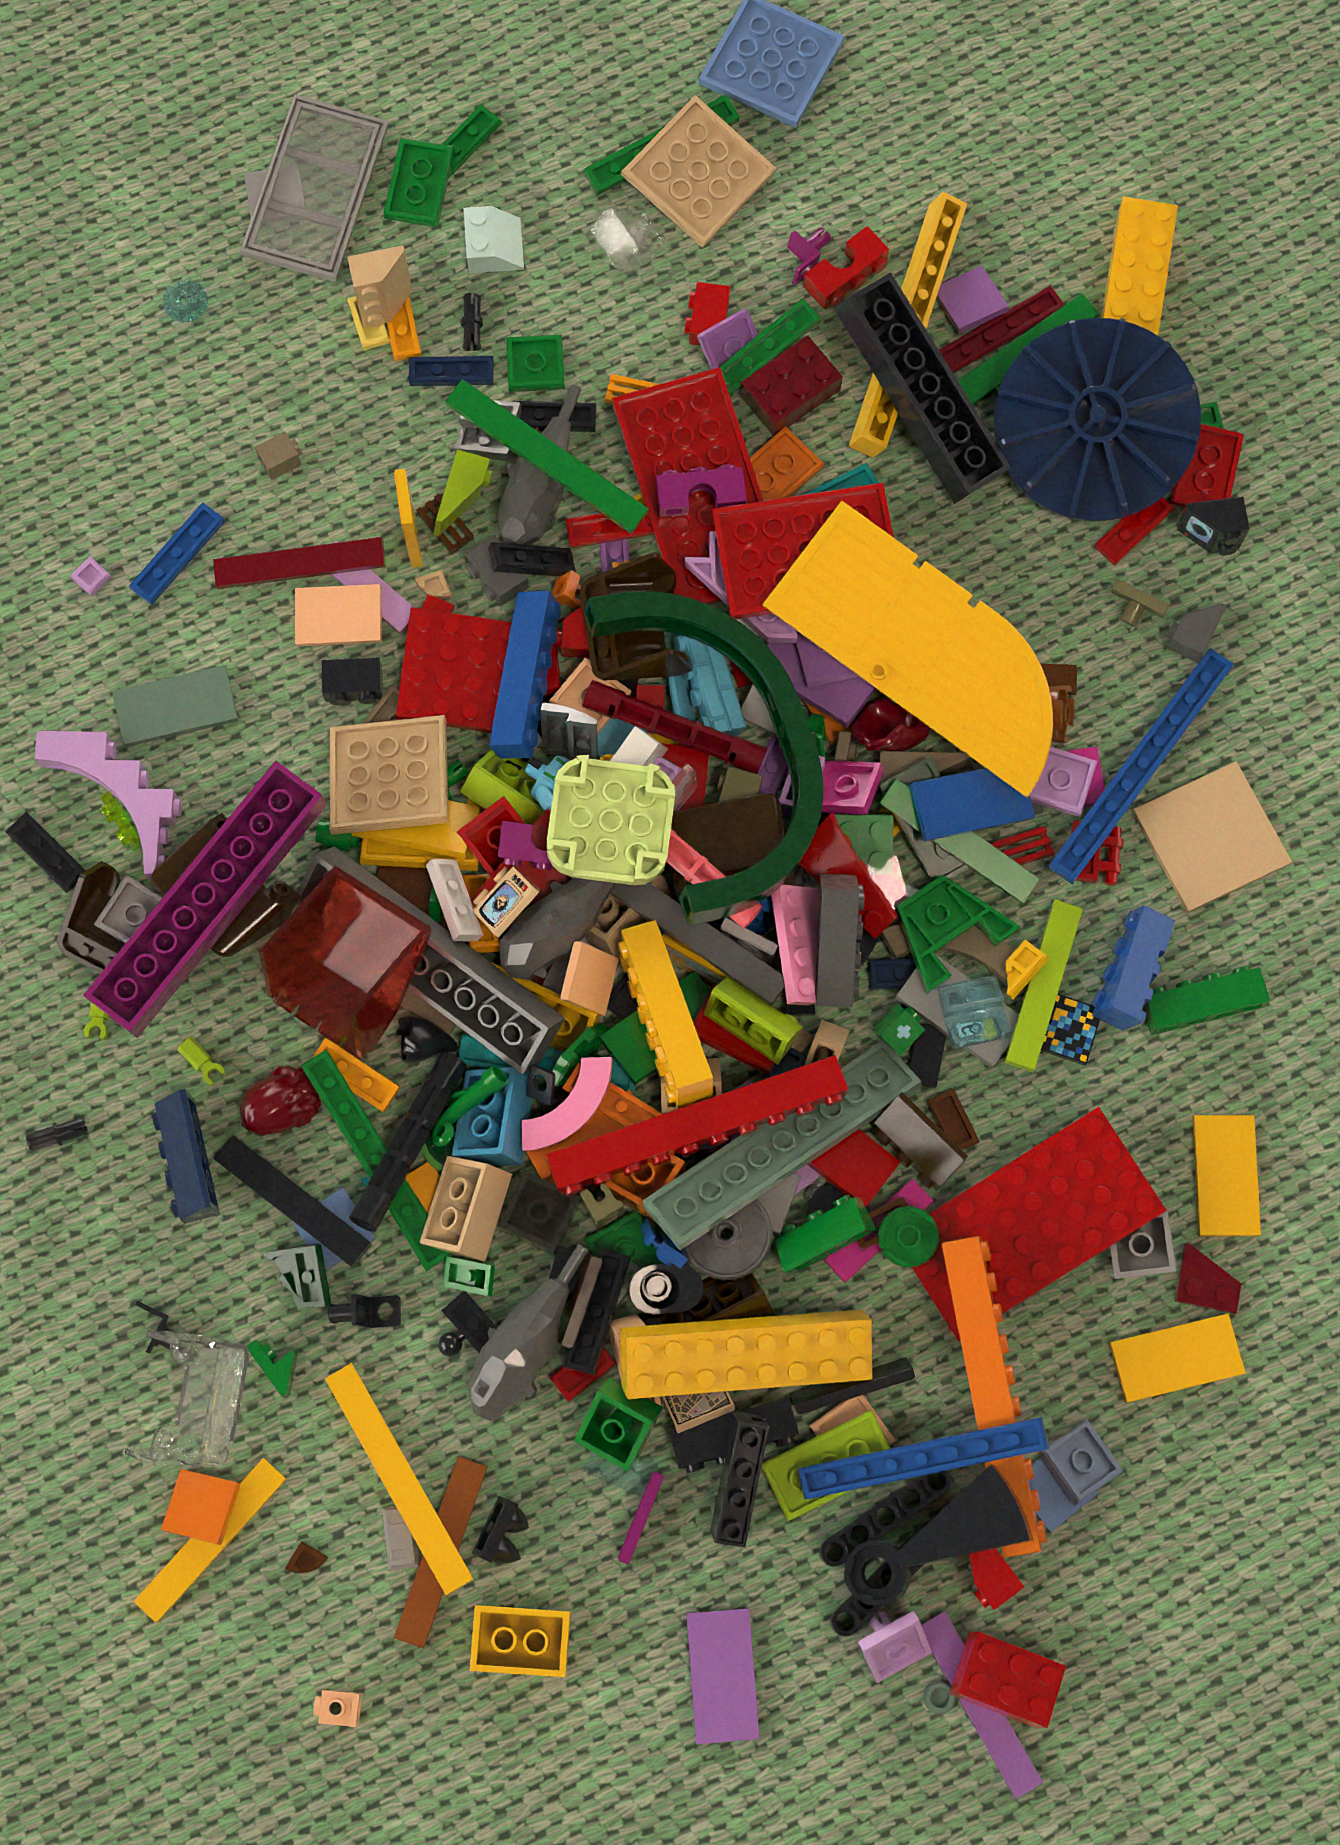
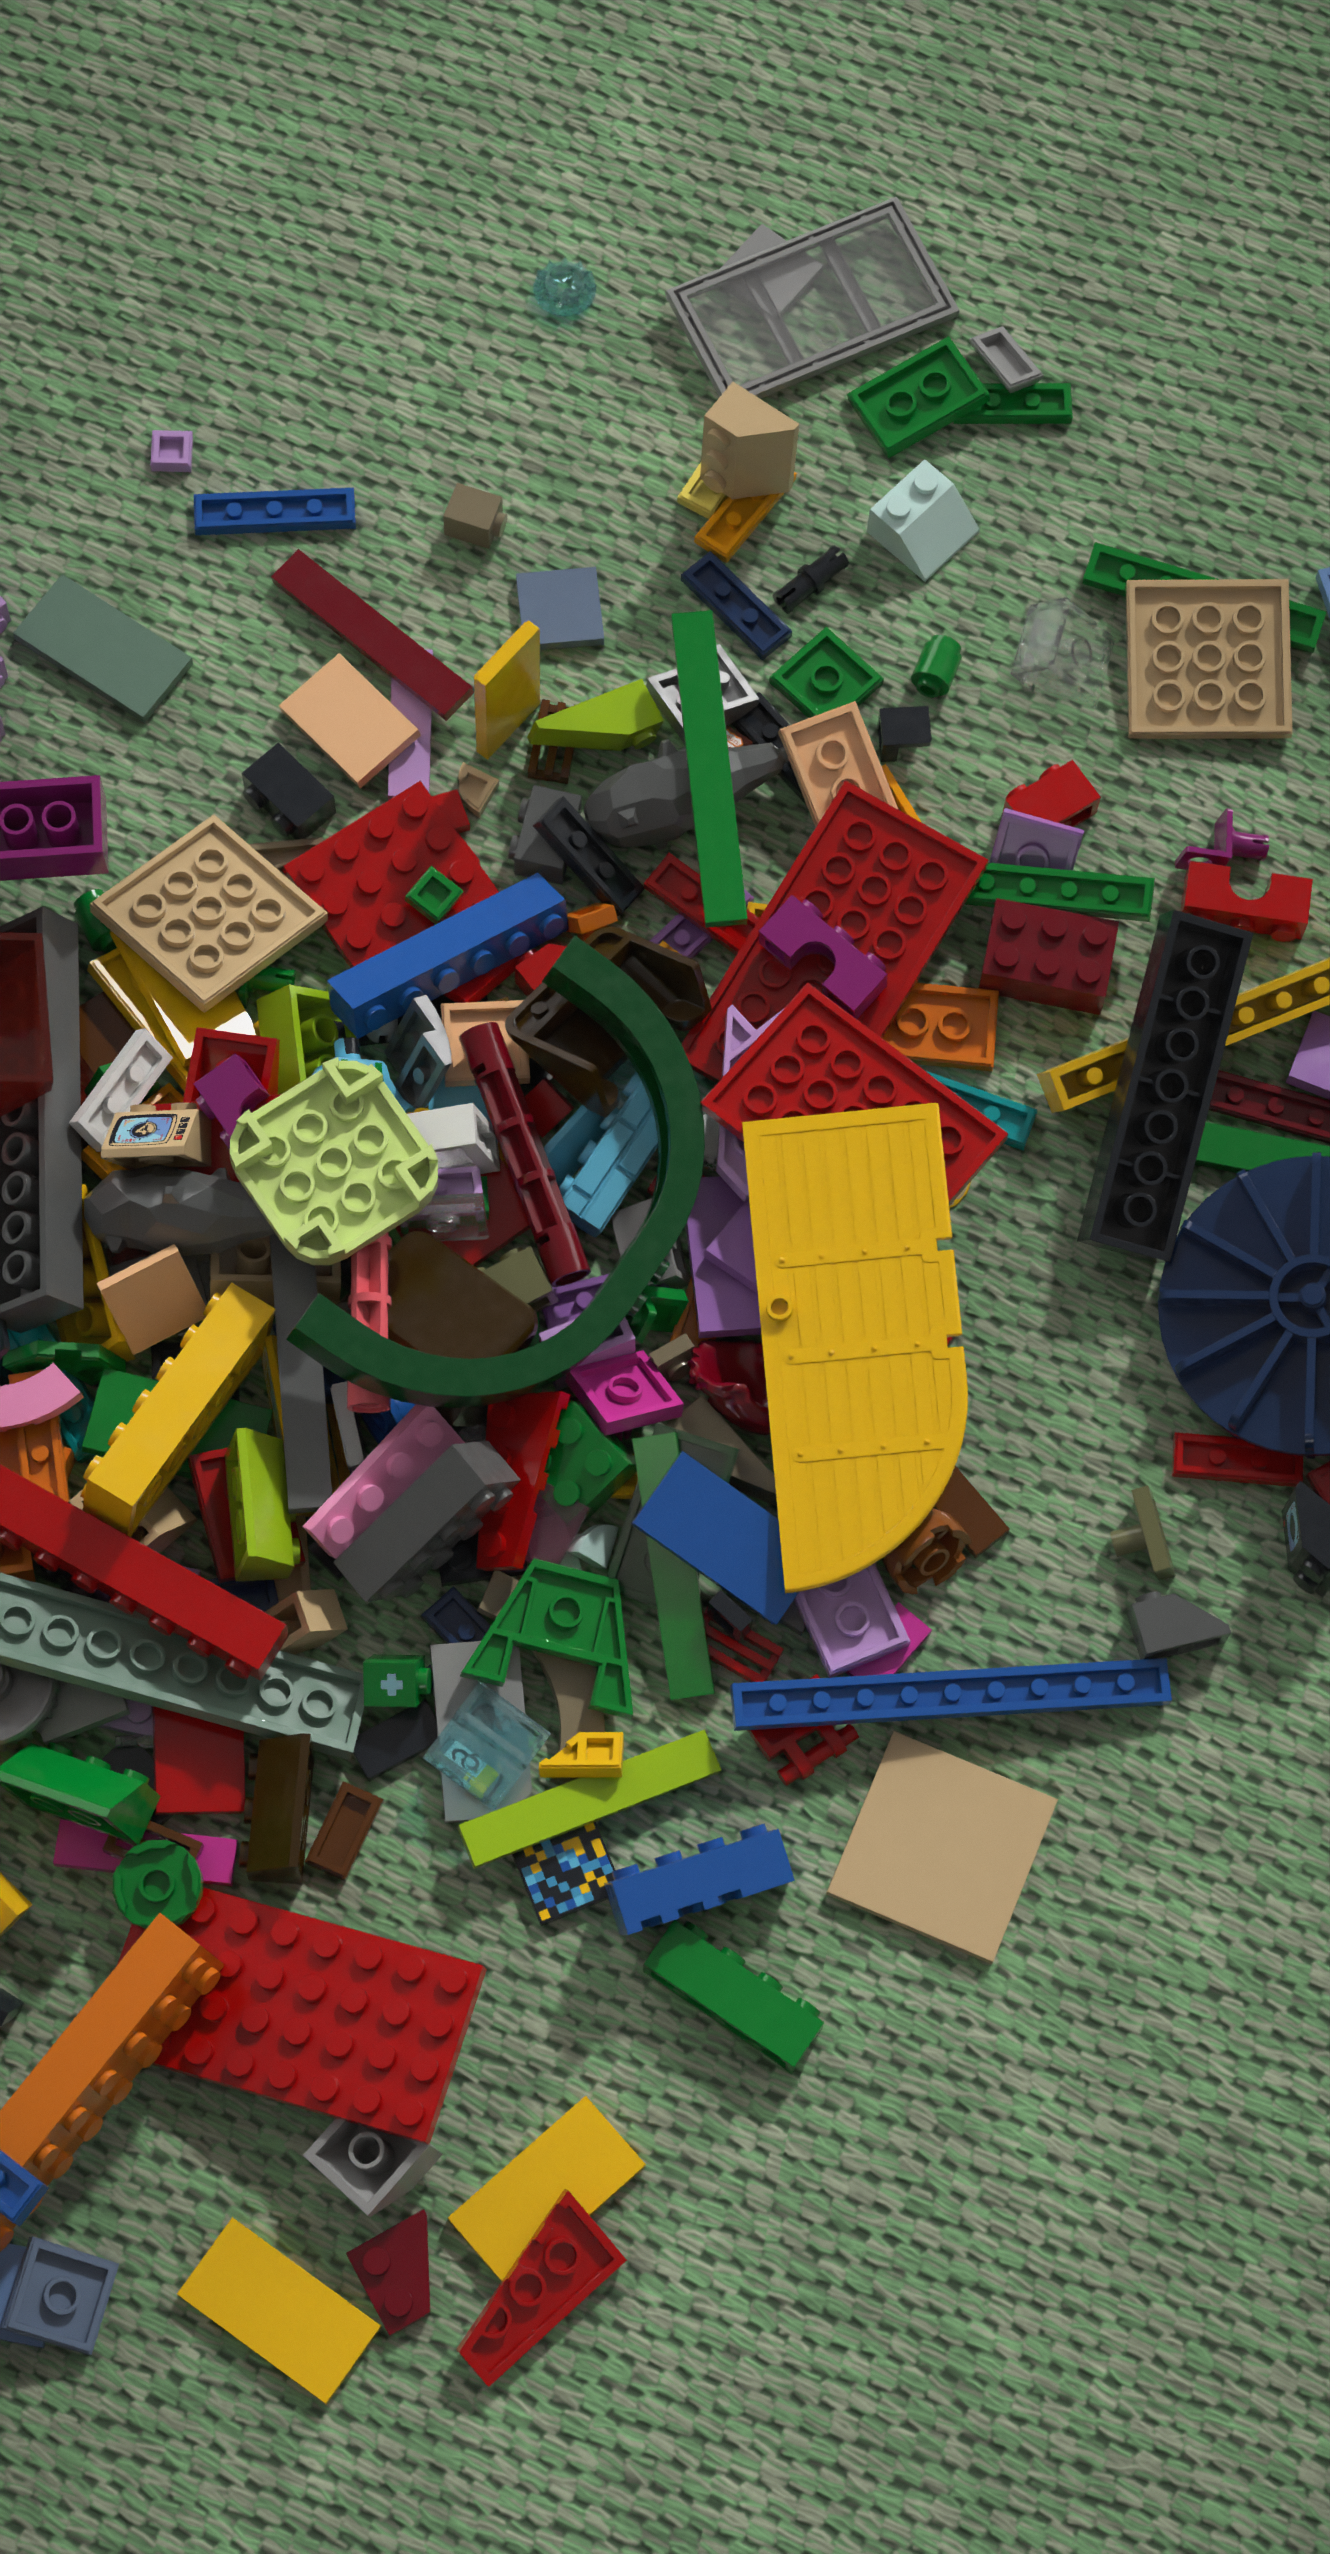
camera: 45 degrees right, 5 degrees down
(371, 458) = (562, 606): none -> sand blue tile
(438, 122) = (1006, 359): none -> light grey tile
(483, 654) = (434, 895): none -> green tile
(580, 303) = (937, 666): none -> green brick
(588, 395) = (833, 750): none -> light nougat tile
(601, 349) = (902, 729): none -> black panel
(910, 870) = (595, 1545): none -> light aqua tile
(1009, 836) = (729, 1616): none -> black tile
(1275, 1213) = (546, 2282): none -> red wing

